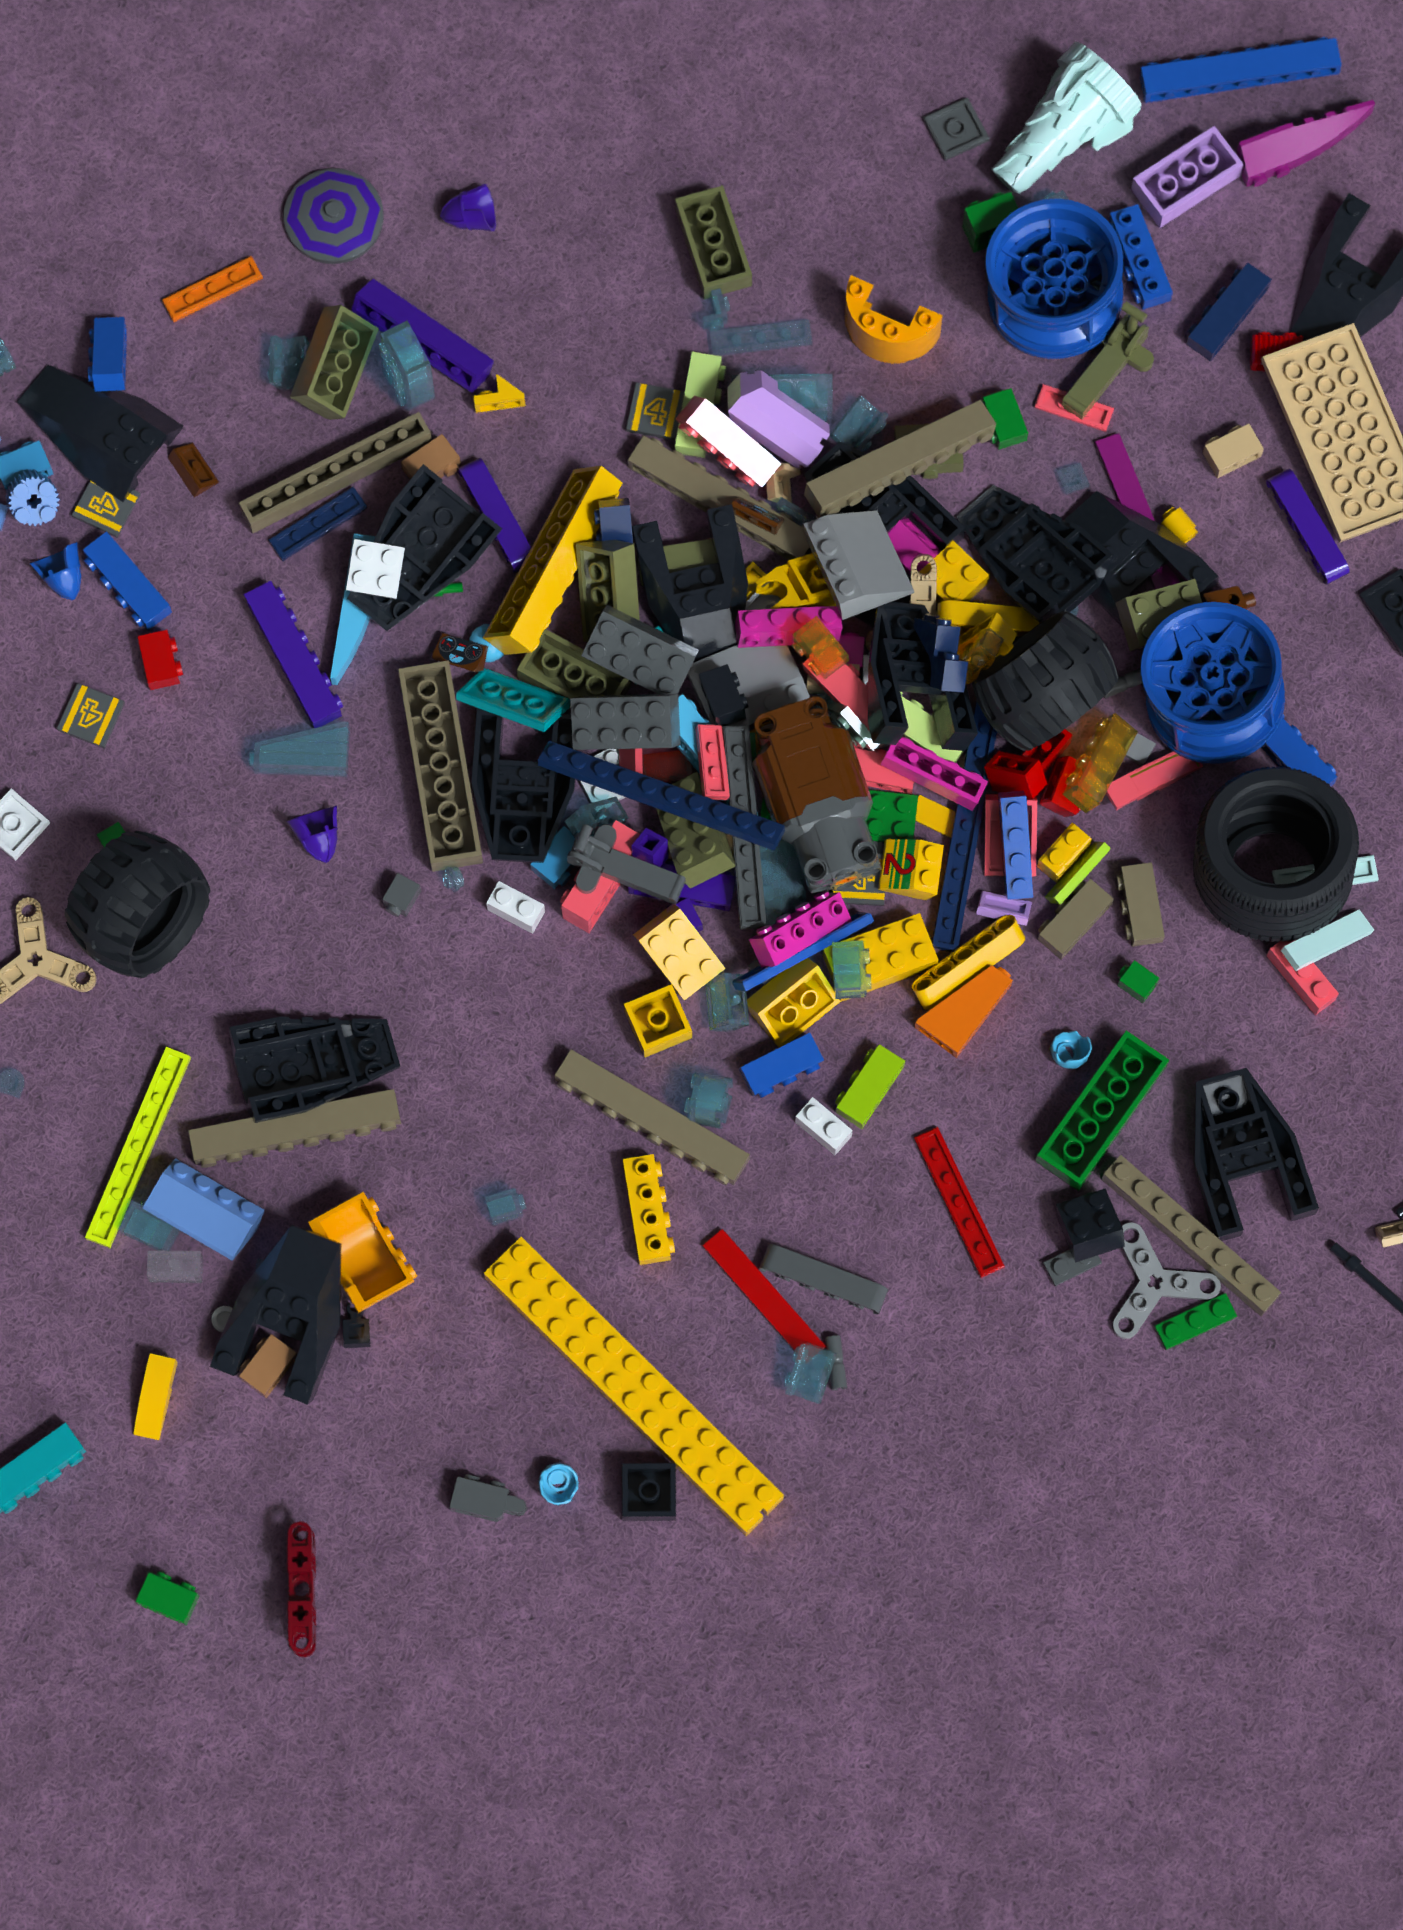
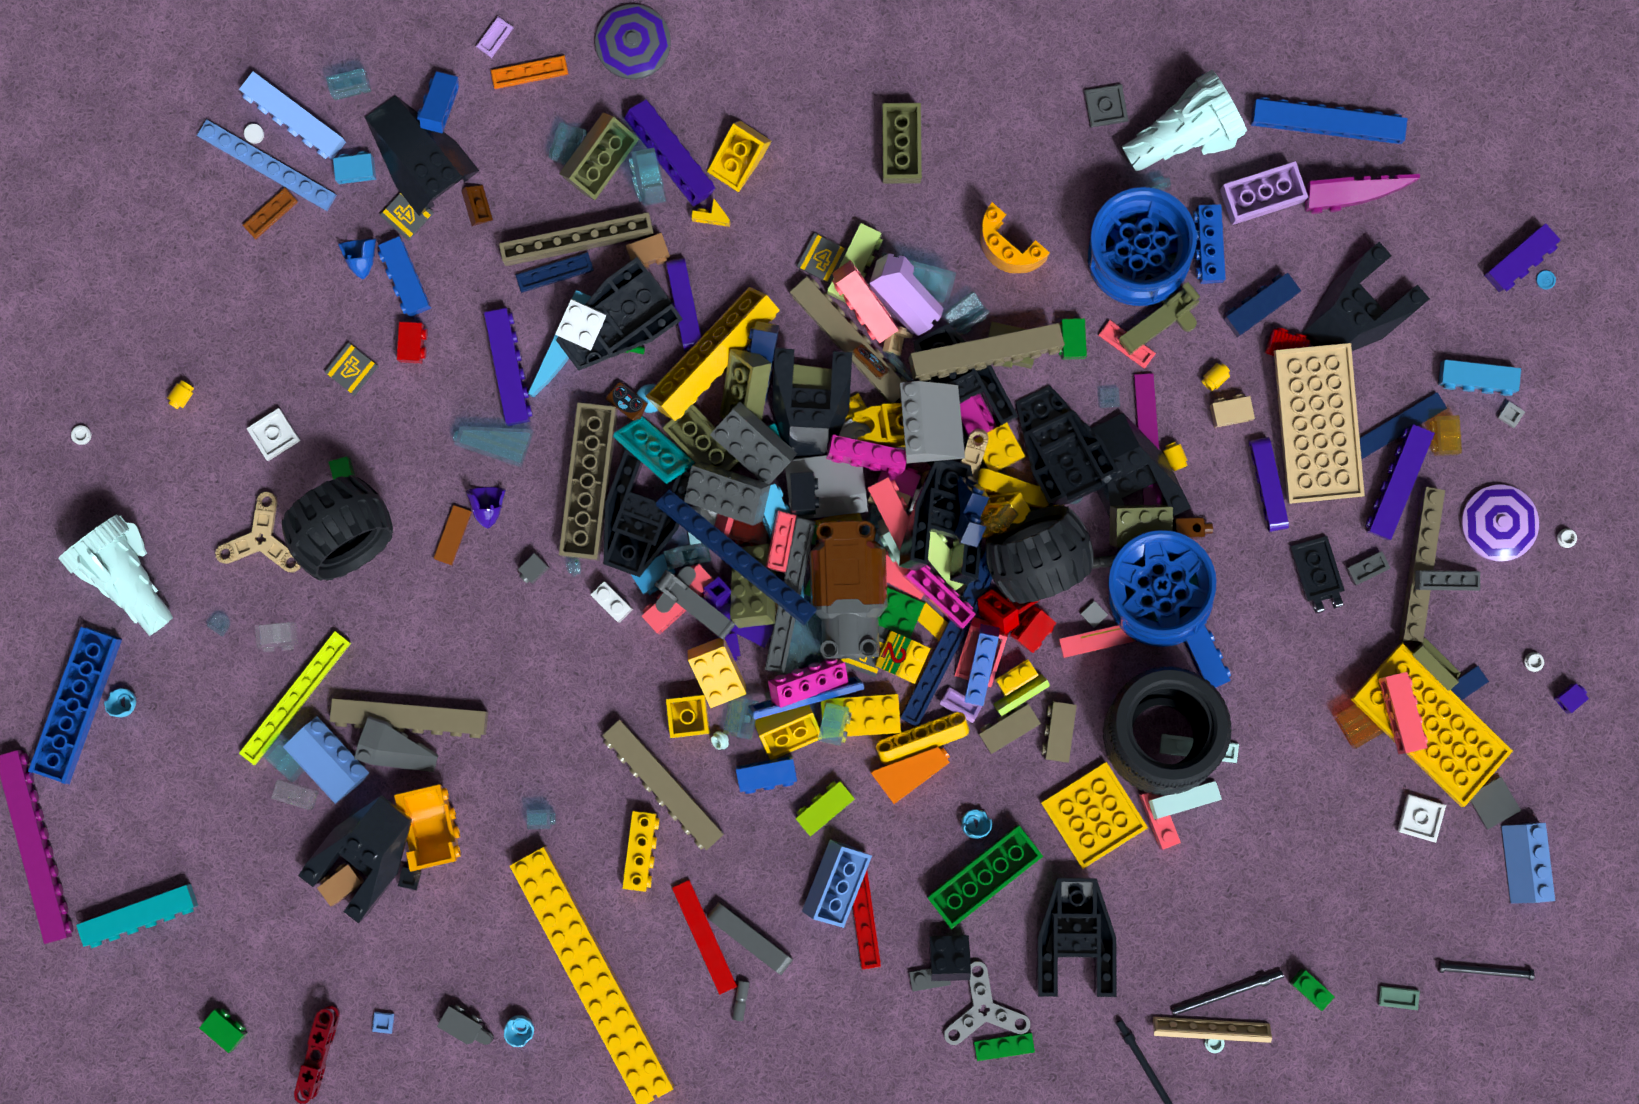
camera: 20 degrees right, 10 degrees up
(33, 512) = (348, 204): brick -> none
(92, 1075) = (276, 636): none -> clear brick
(155, 258) = (494, 37): none -> lavender tile
(155, 1396) = (255, 882): yellow slope -> none
(220, 1317) = (318, 838): white tile -> none
(283, 885) = (452, 535): none -> dark orange tile
(284, 1170) = (389, 748): none -> dark grey wedge
(306, 1062) = (431, 674): black wedge -> none
(375, 1529) = (383, 1022): none -> medium blue tile
(471, 210) = (740, 67): dark purple helmet -> none
(511, 315) = (739, 155): none -> yellow slope
(649, 1491) = (580, 1056): black brick -> none
(708, 1041) = (720, 740): none -> light aqua plate
(709, 1099) = (706, 786): clear light blue brick -> none
(720, 306) = (893, 192): clear light blue bracket -> none
(761, 338) = (915, 224): clear light blue tile -> none
(810, 1372) = (720, 1004): clear light blue bracket -> none
(820, 648) = (882, 481): clear yellow brick -> none
(823, 1126) = (783, 828): white brick -> none
(915, 1175) = (836, 883): none -> medium blue slope
(984, 217) = (1105, 185): green brick -> none
(1099, 762) = (1061, 621): clear yellow brick -> none
(1137, 981) = (1039, 787): green brick -> none
(1191, 1235) = (1020, 986): dark tan brick -> none
(1199, 414) = (1216, 376): none -> yellow brick
(1218, 996) = (1094, 815): none -> yellow plate

